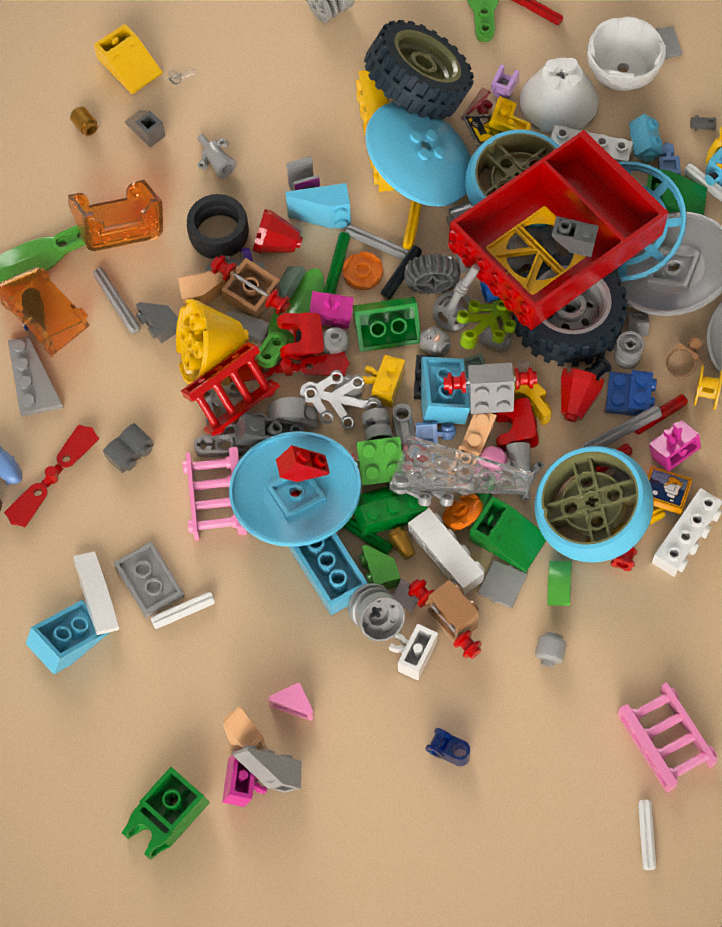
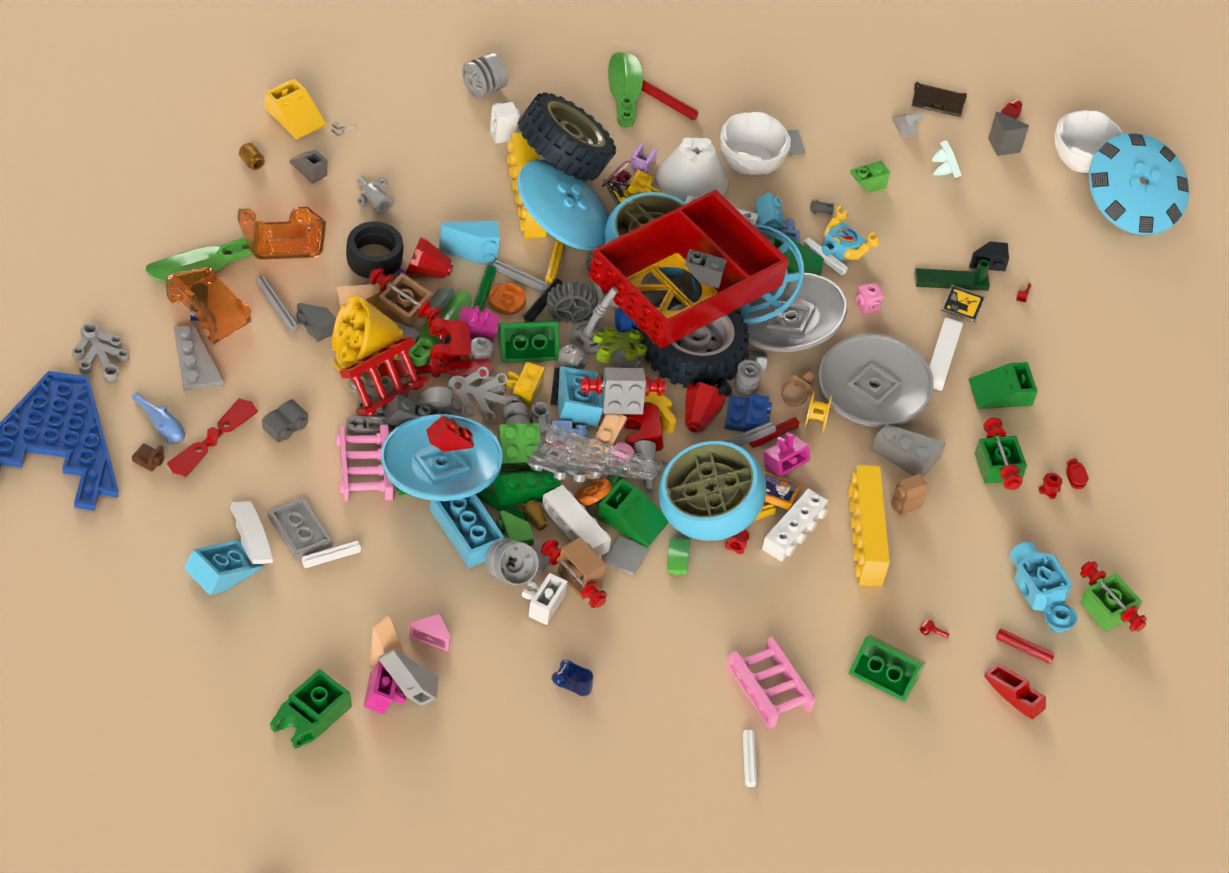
camera: 10 degrees left, 15 degrees down
(301, 174) = (454, 211): light grey piece -> none
(351, 52) = (503, 121): none -> white brick
(550, 649) = (668, 606): light grey head -> none

